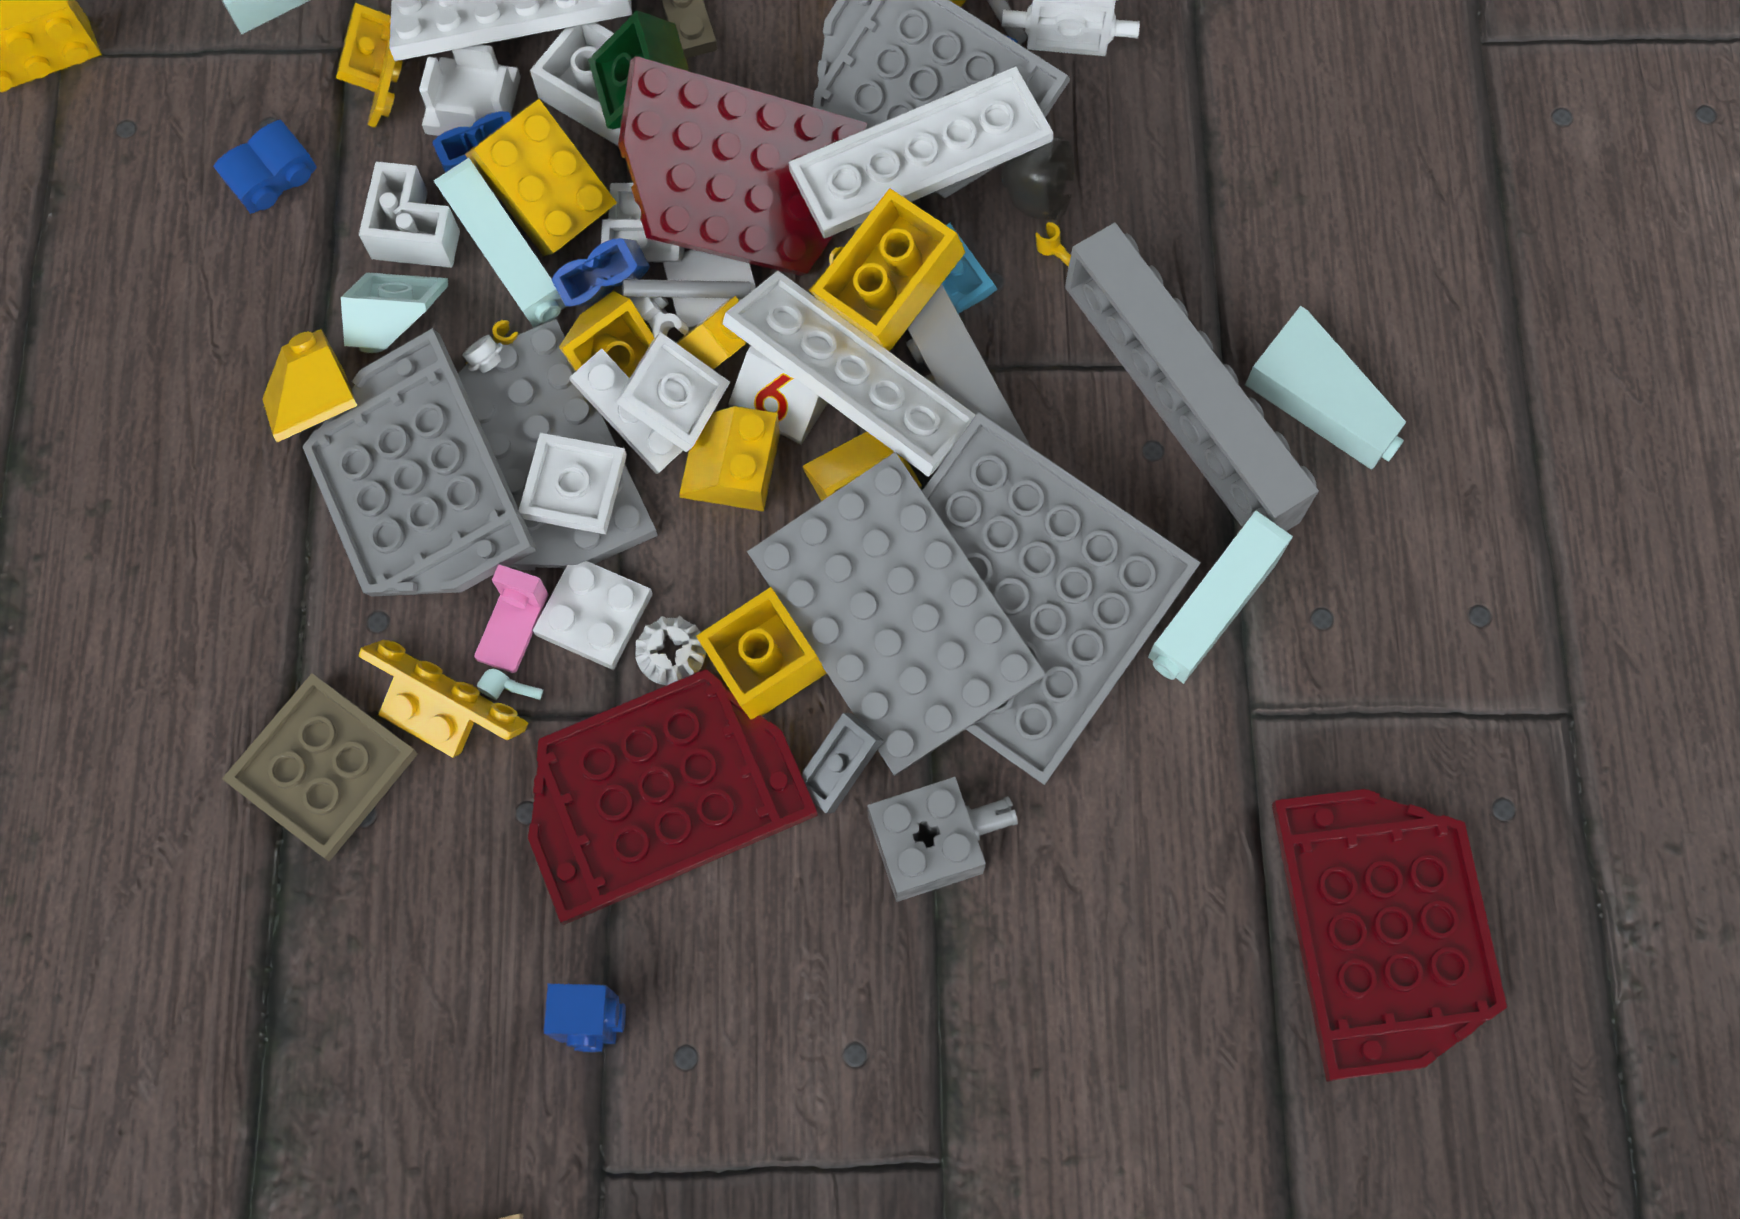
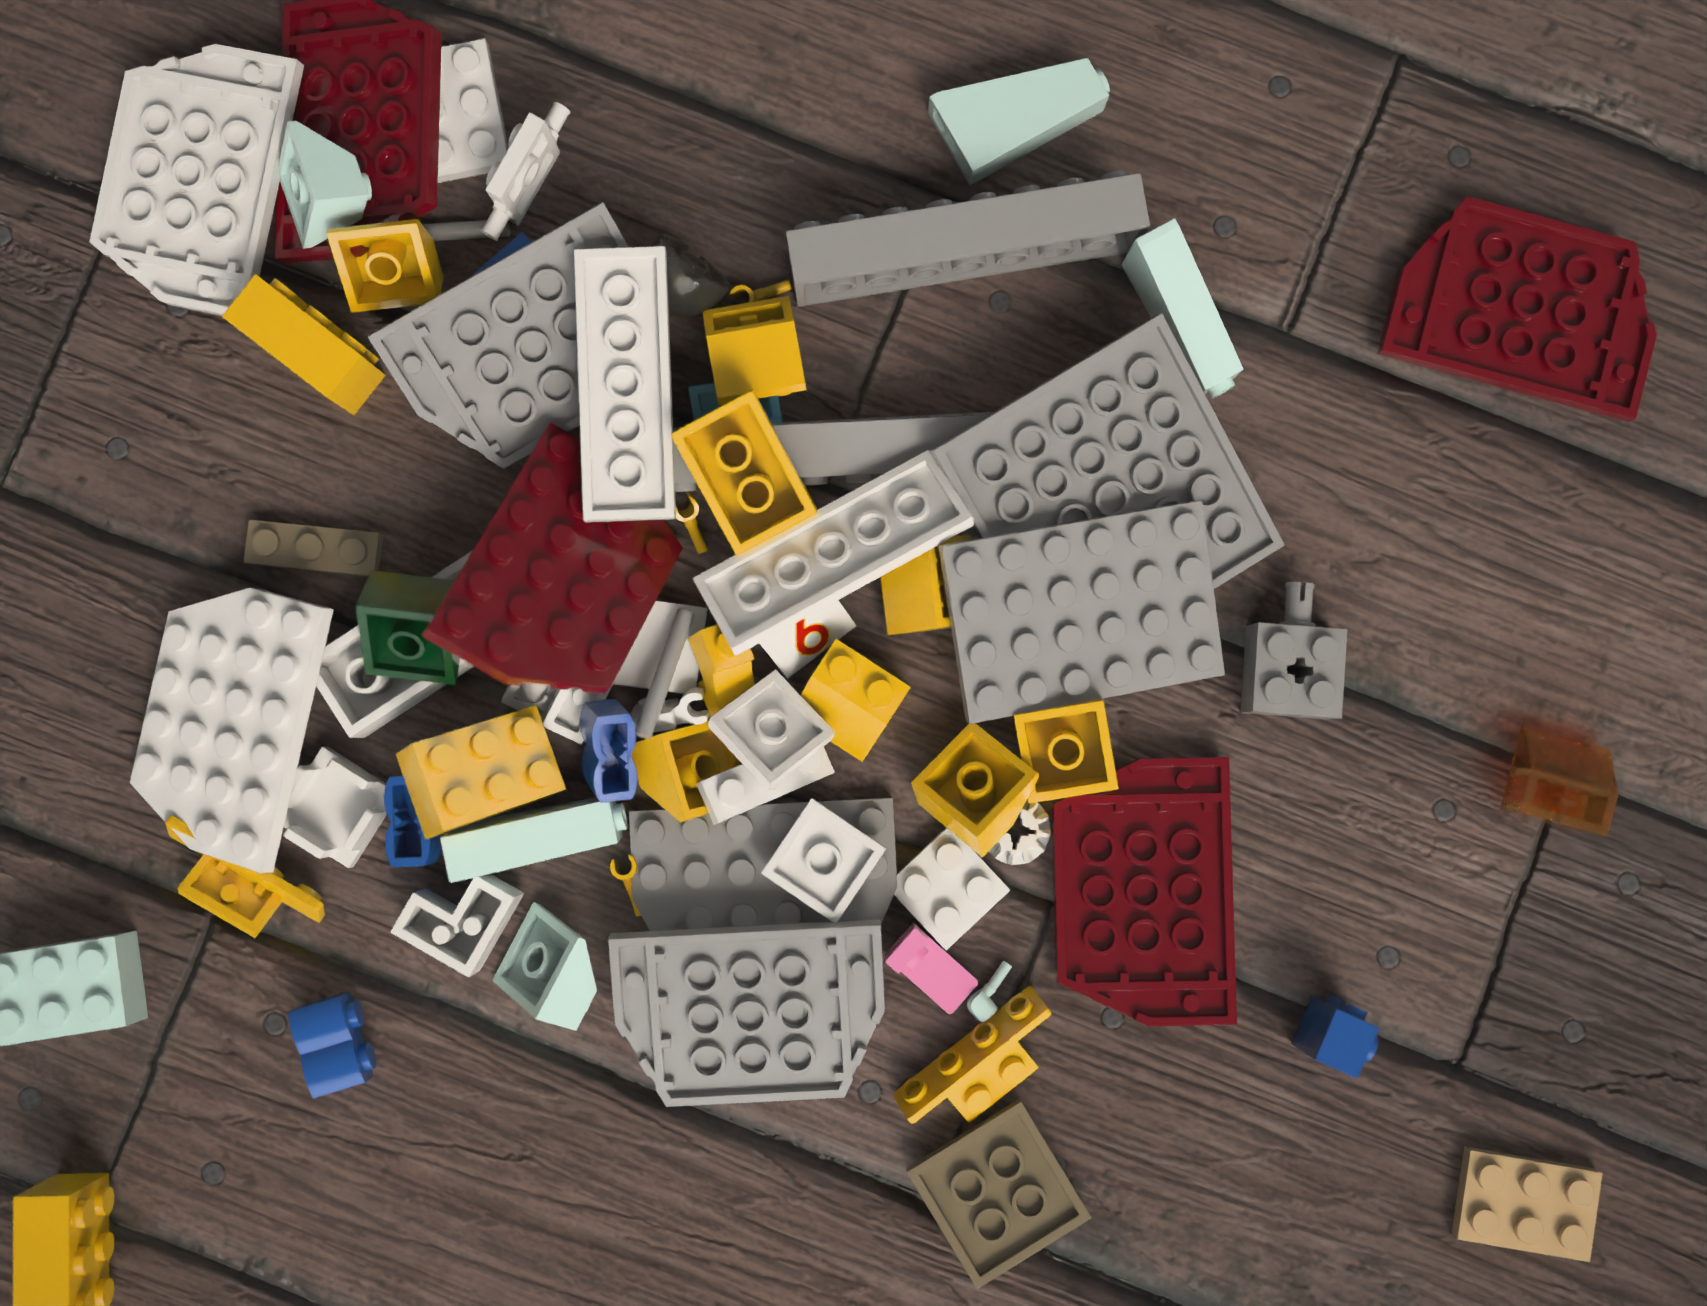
camera: 70 degrees left, 15 degrees up
(306, 386) = (610, 1083): yellow slope -> none
(483, 354) = (648, 895): white plate -> none
(690, 586) = (975, 788): none -> yellow slope
(840, 761) = (1193, 718): plate -> none
(930, 1150) = (1561, 782): none -> clear orange slope
(1007, 253) = (754, 349): none -> yellow slope

